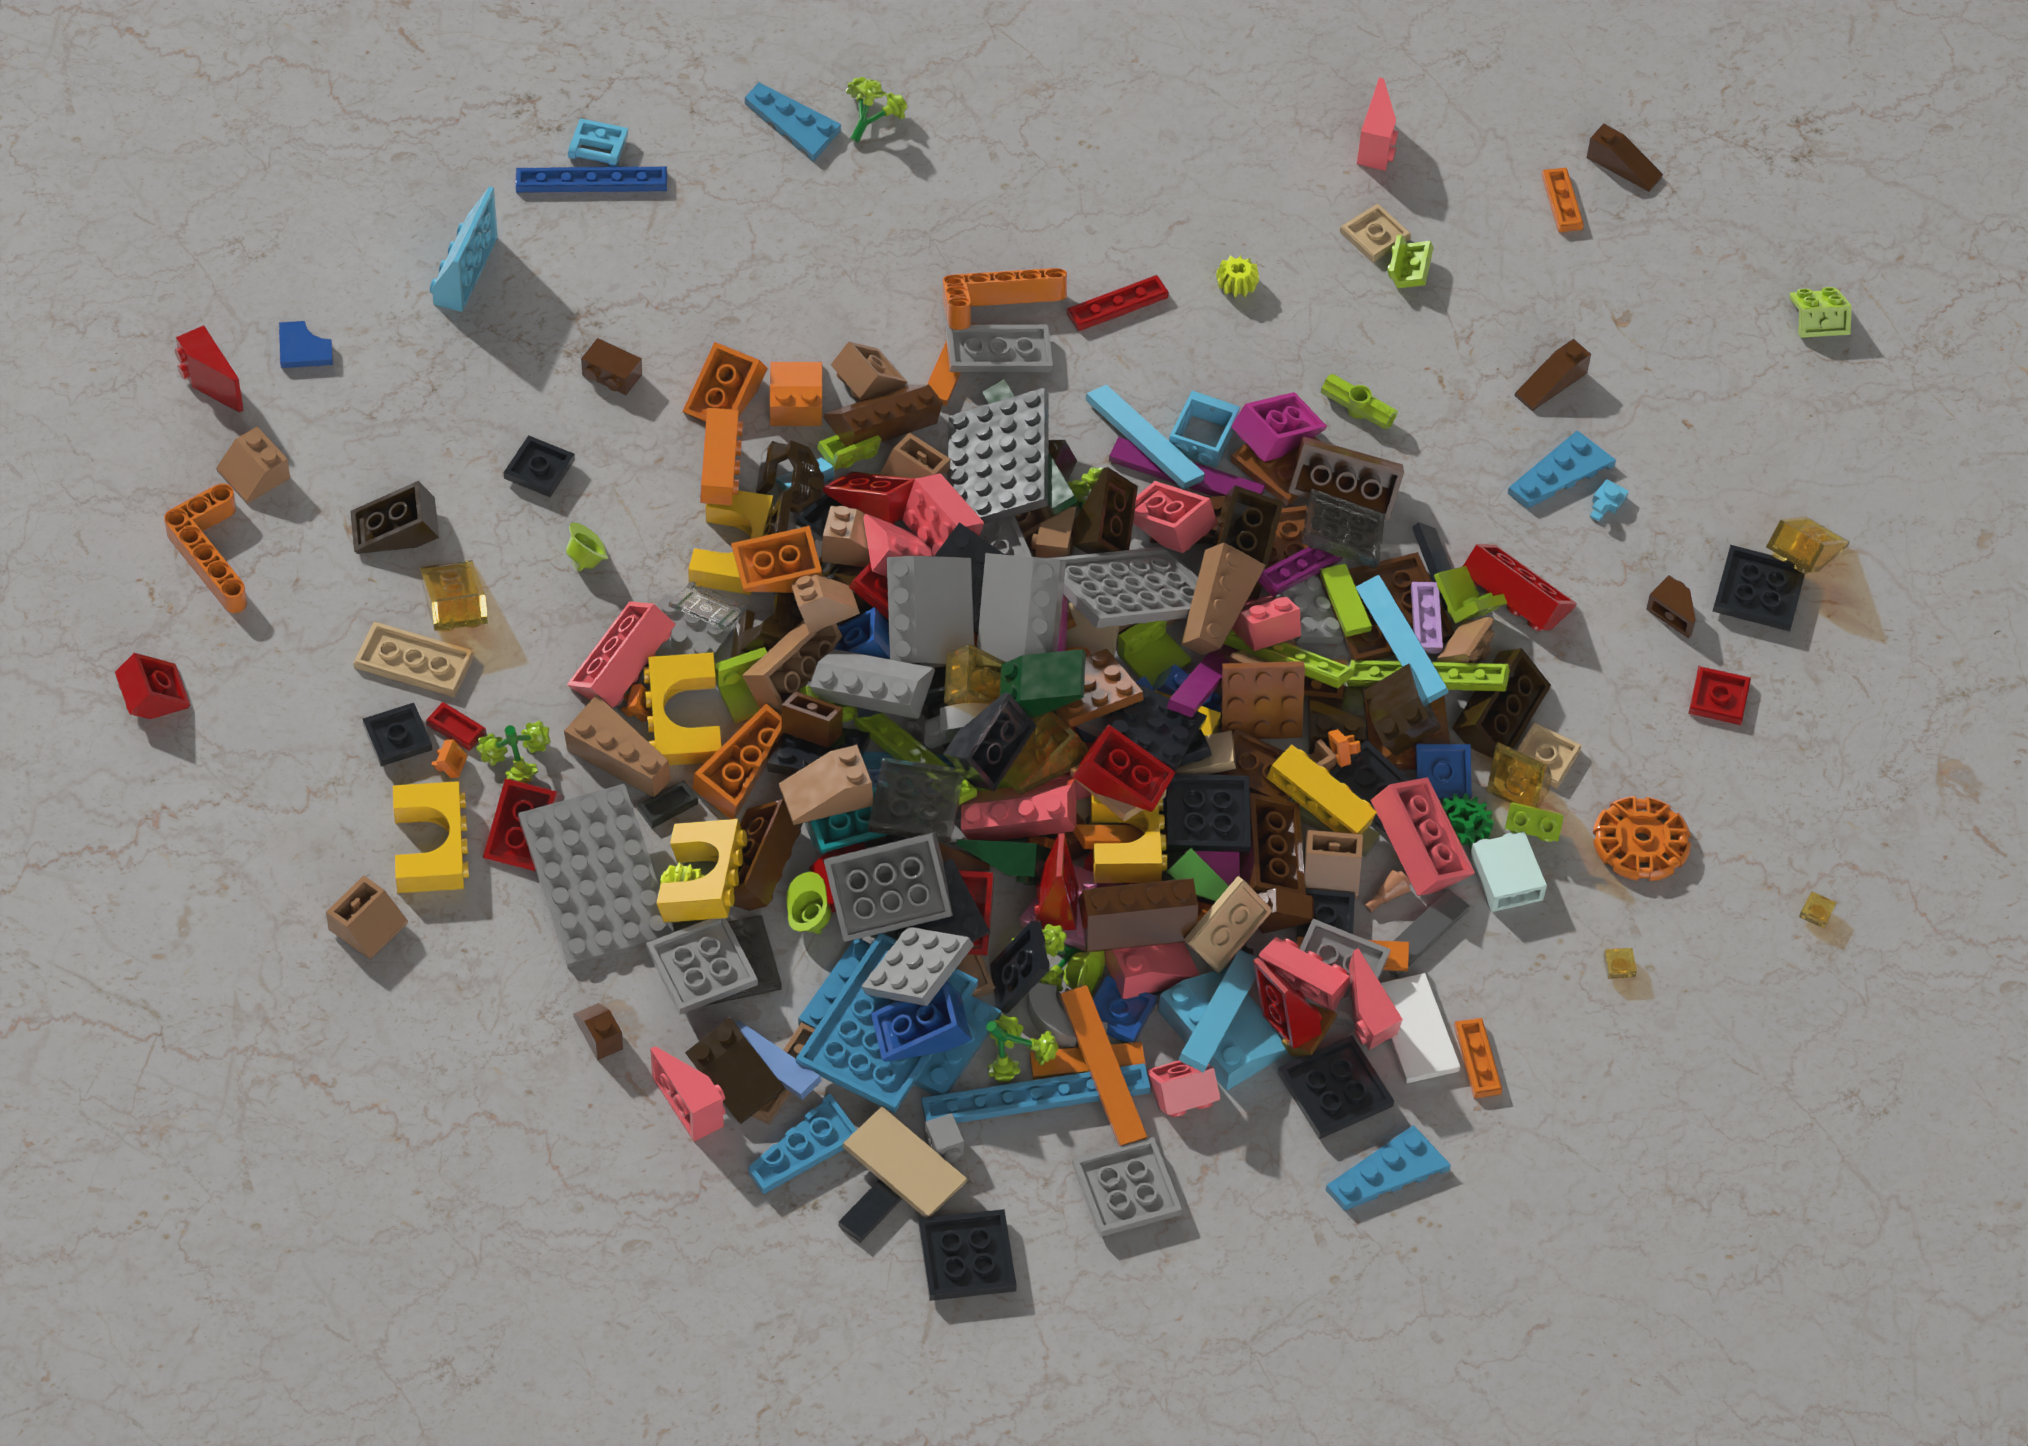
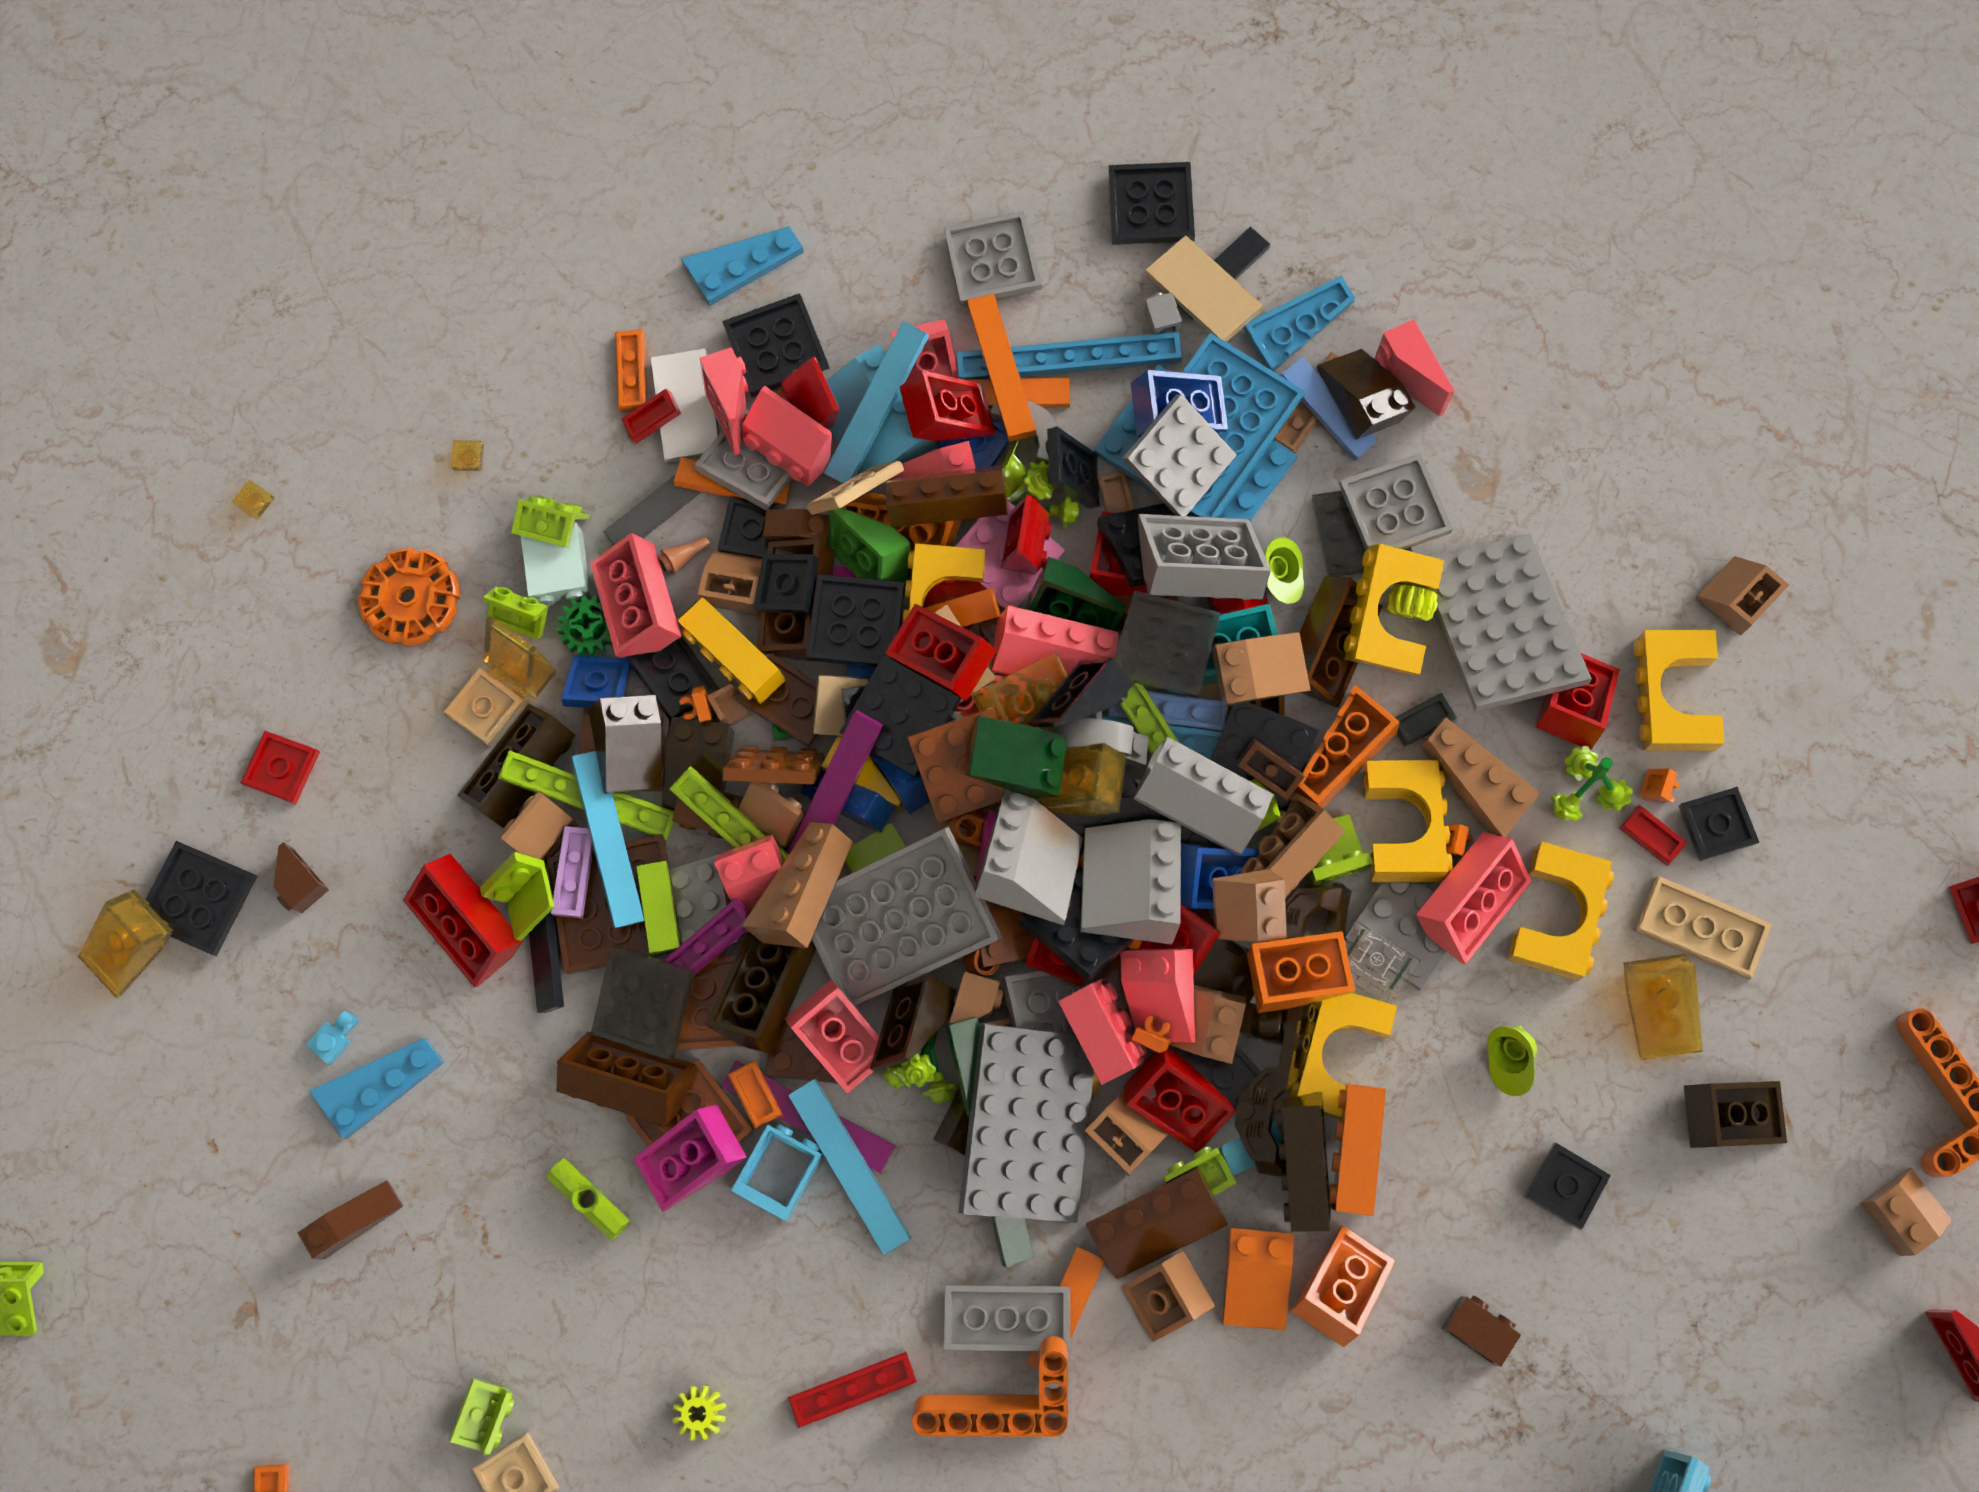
camera: 165 degrees left, 20 degrees up
(301, 347) = (1864, 1401): blue tile -> none
(537, 626) = (1587, 880): none -> yellow arch
(600, 1030) = (1499, 458): reddish brown slope -> none
(763, 447) = (1305, 1163): none -> dark brown slope
(900, 513) = (1152, 1038): none -> orange tile
(1008, 1031) = (1096, 385): lime plant -> none
(1150, 1009) = (945, 407): none -> red slope
(1230, 473) = (755, 1094): none -> orange tile
(1279, 843) = (786, 583): none -> black plate
(1446, 1008) = (651, 416): none -> red tile
(1520, 900) = (545, 521): none -> lime bracket

